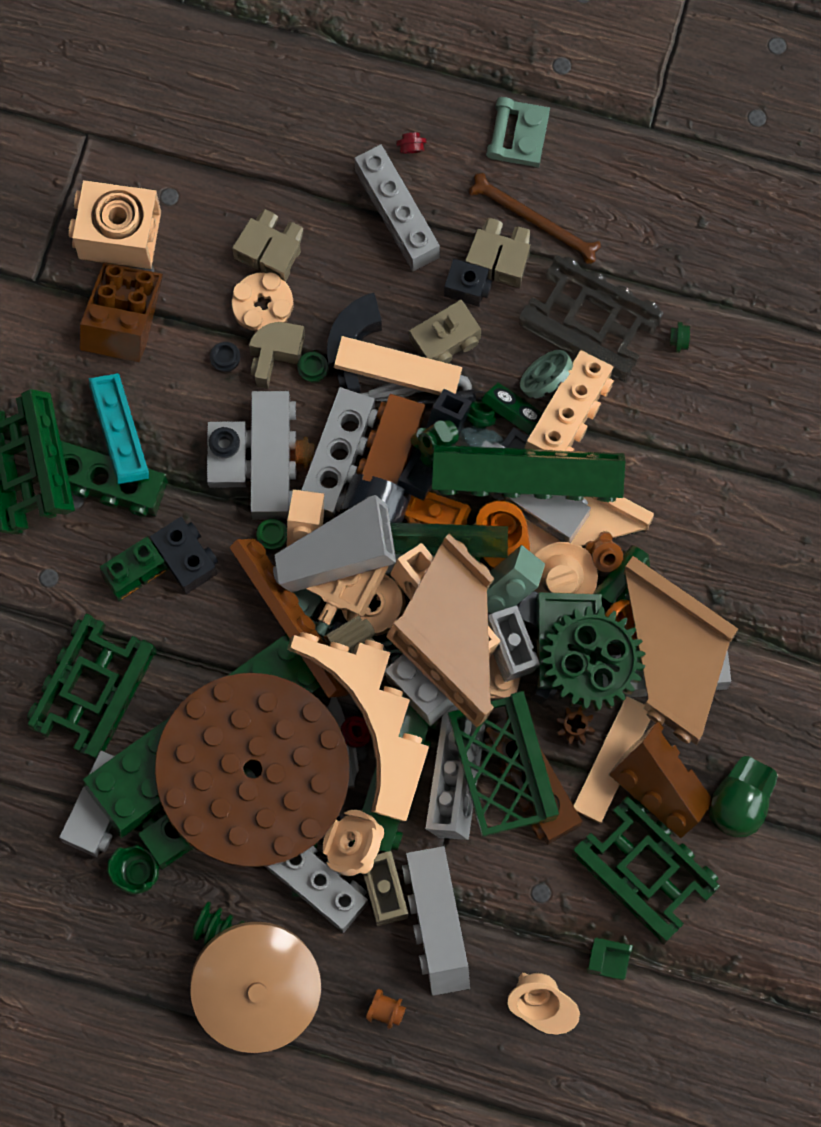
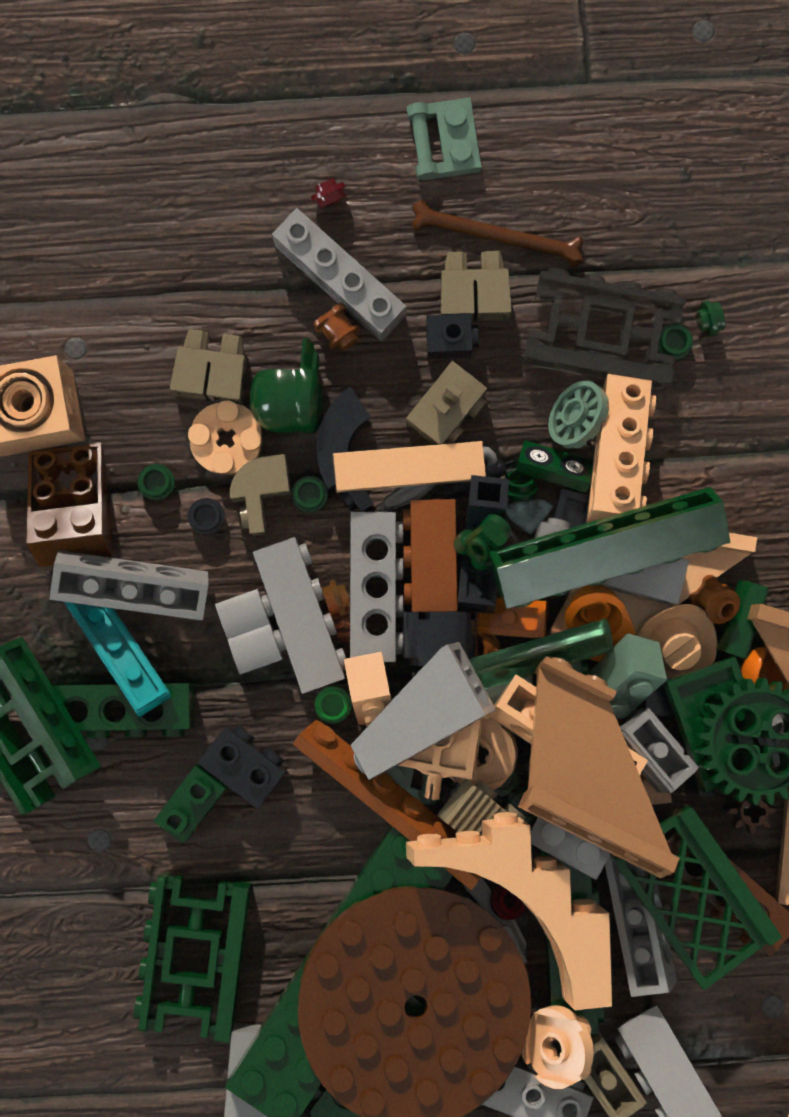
camera: 20 degrees left, 10 degrees up
(147, 383) = (129, 585): none -> light grey brick
(195, 317) = (156, 482): none -> dark green plate
(220, 434) = (234, 616): black plate -> none
(324, 286) = (289, 398): none -> dark green piece
(381, 247) = (337, 328): none -> dark orange brick
(646, 345) = (675, 341): none -> dark green plate

